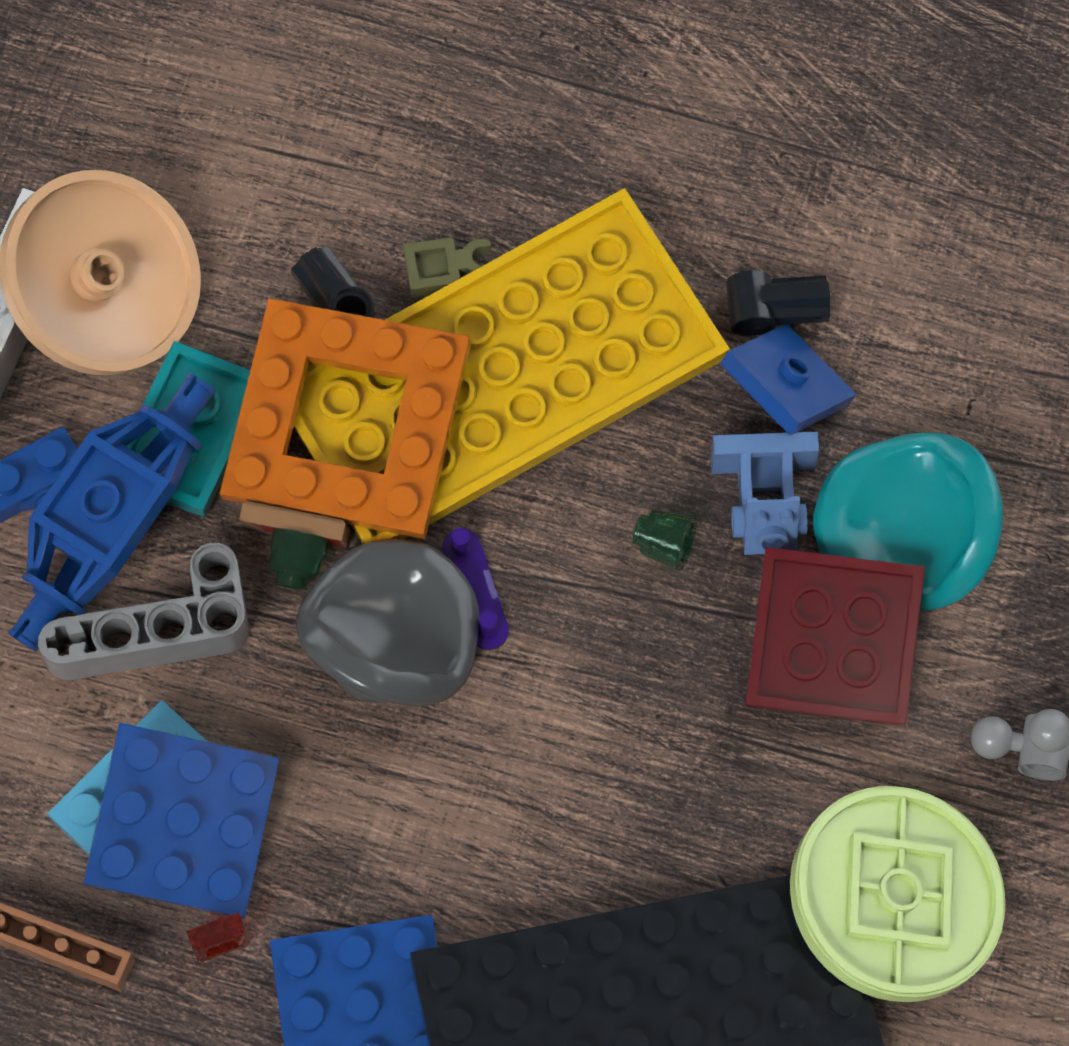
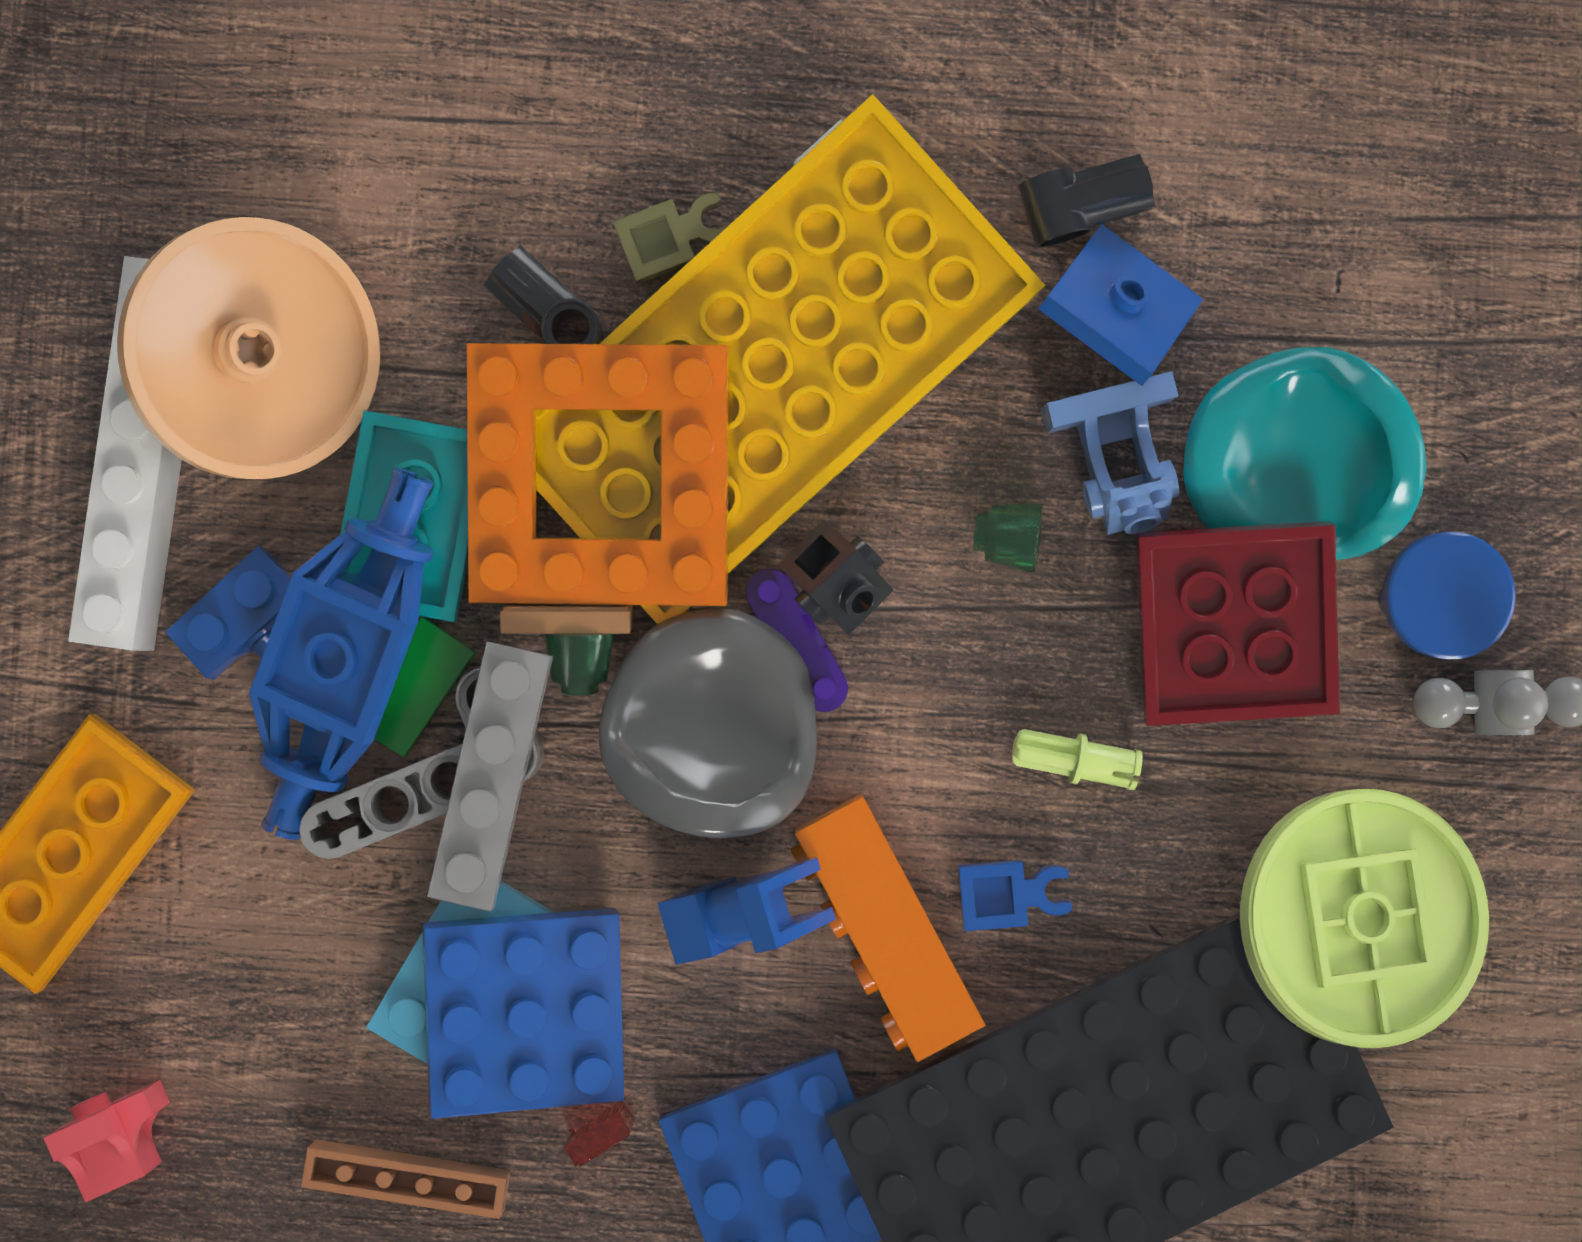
camera: 10 degrees left, 20 degrees up
(159, 558) = (423, 683): none -> green tile
(202, 622) = (490, 776): none -> light grey plate
(379, 779) = (736, 912): none -> blue piece
(498, 820) = (888, 929): none -> orange brick
(517, 536) = (836, 577): none -> black brick
(595, 816) = (998, 894): none -> blue plate
(682, 720) = (1077, 758): none -> yellowish green axle
(1014, 655) = (1448, 595): none -> blue tile

